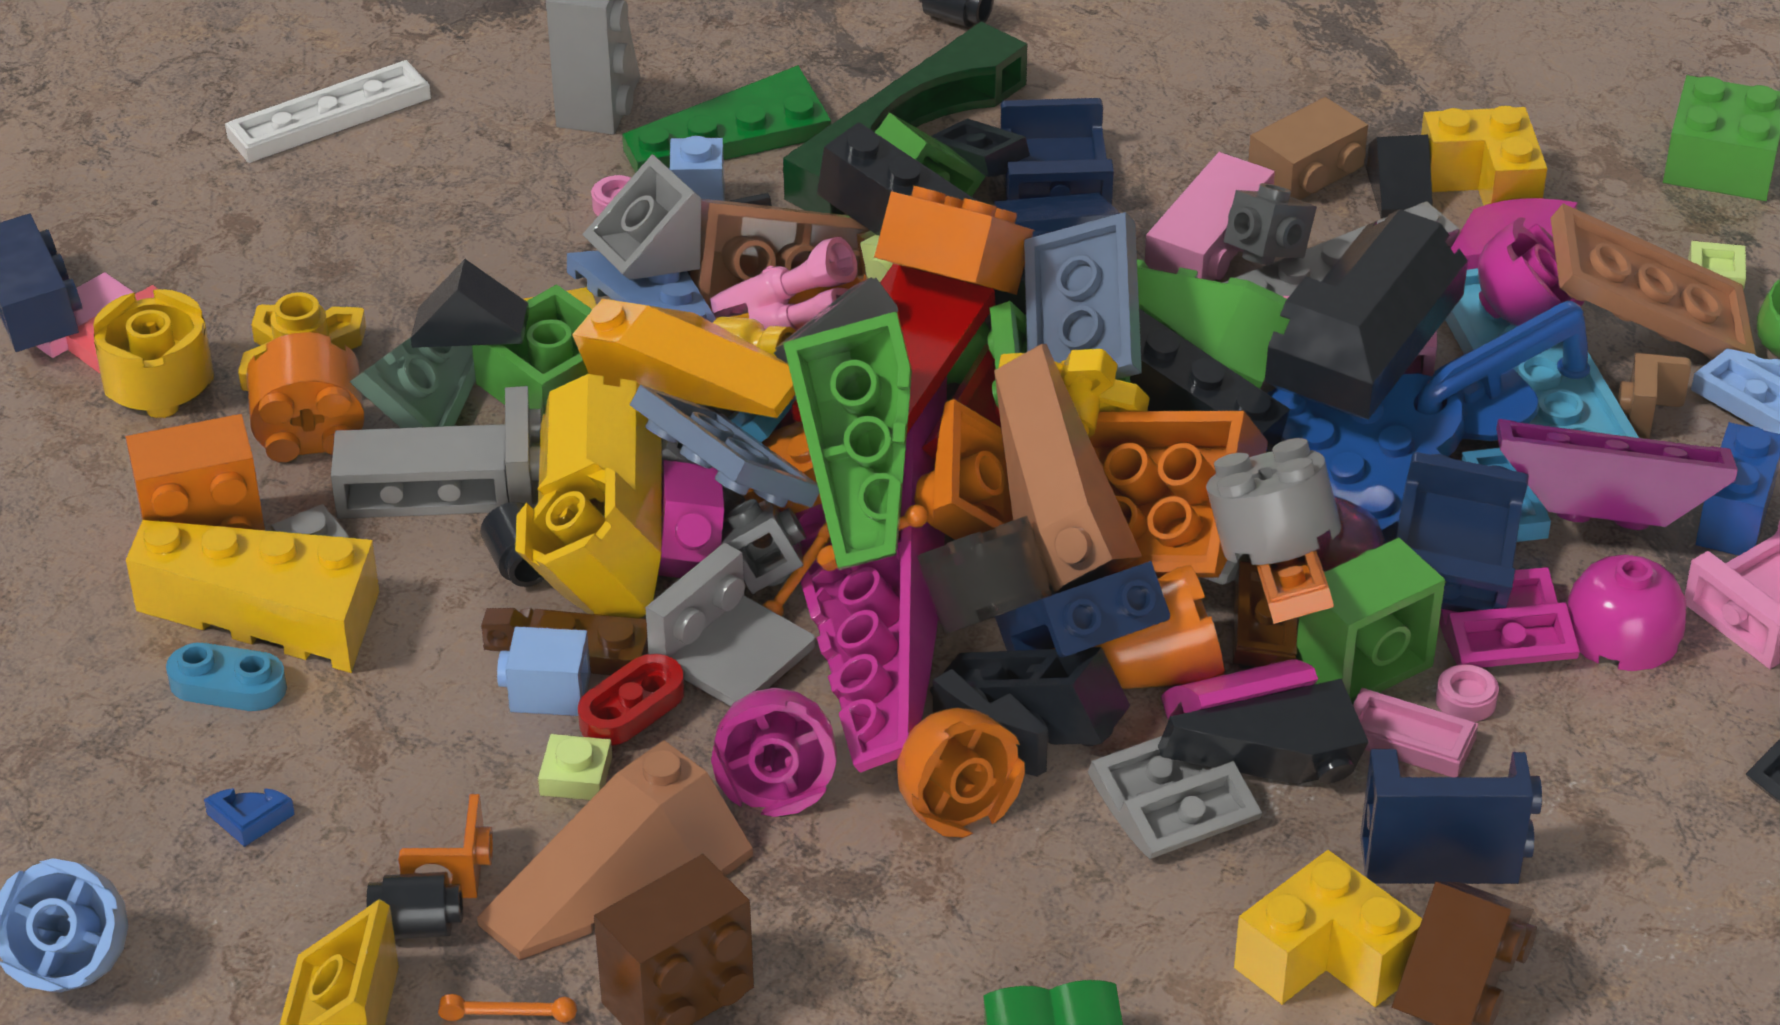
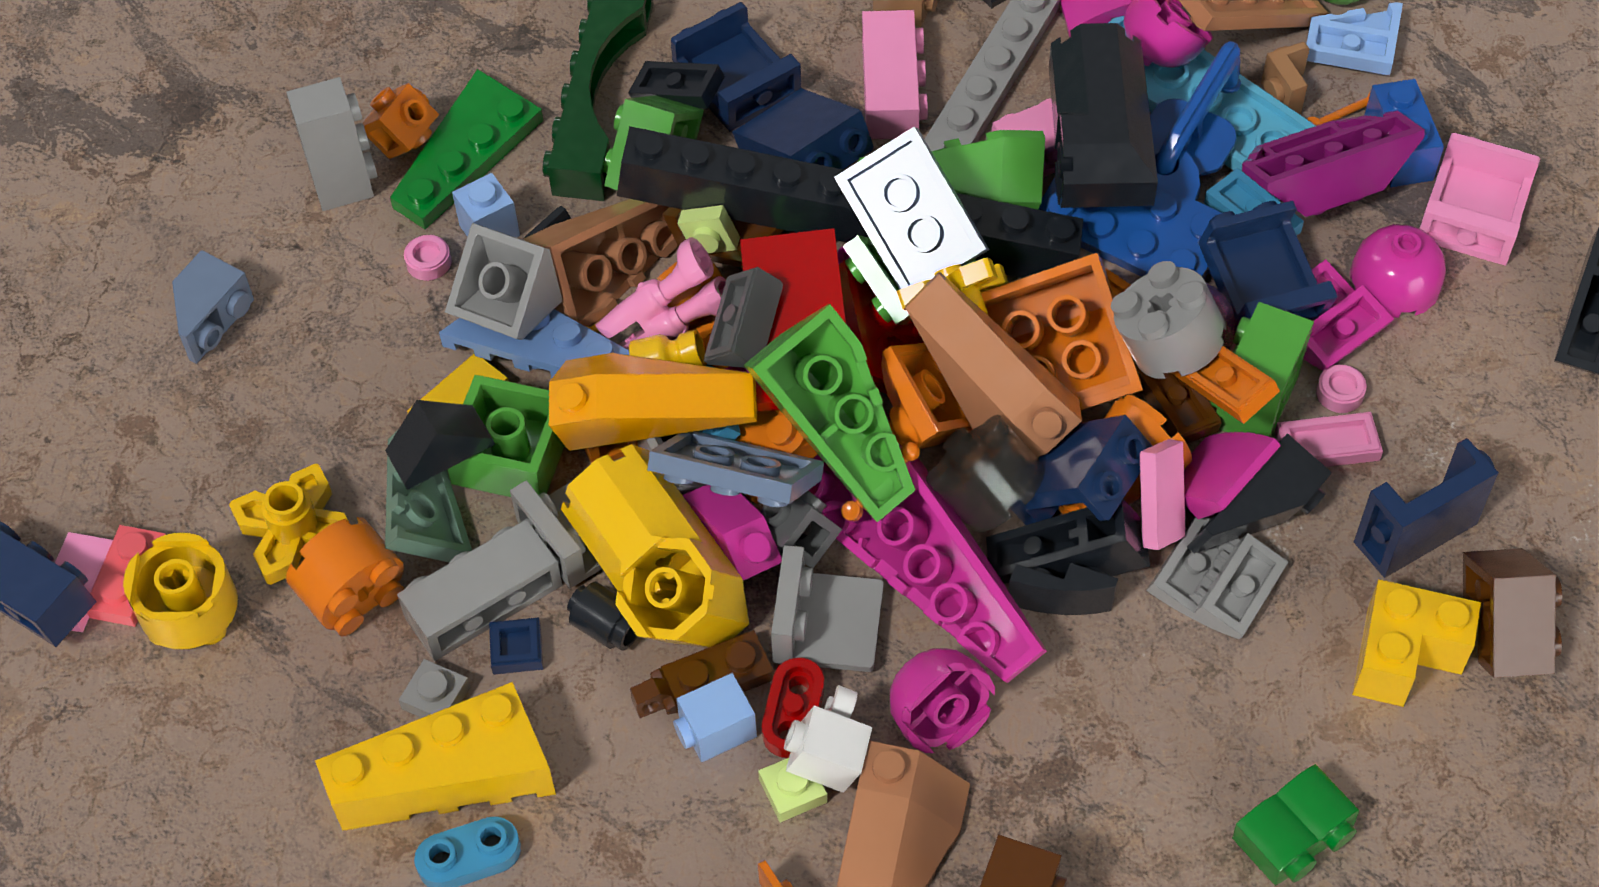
camera: 30 degrees left, 15 degrees up
(197, 474) = (330, 703): orange brick -> none
(327, 111) = (126, 285): white tile -> none
(378, 148) = (208, 301): none -> sand blue slope
(419, 536) = (516, 646): none -> dark blue tile
(624, 723) = (829, 744): none -> white brick
(681, 71) = (399, 120): none -> orange brick
(779, 600) = (836, 493): orange hinge -> none
(954, 239) = (787, 204): orange brick -> none
(959, 770) = (1074, 641): orange cylinder -> none
(1151, 667) = (1162, 494): none -> bright pink tile
(1269, 224) = (951, 63): dark grey brick -> none

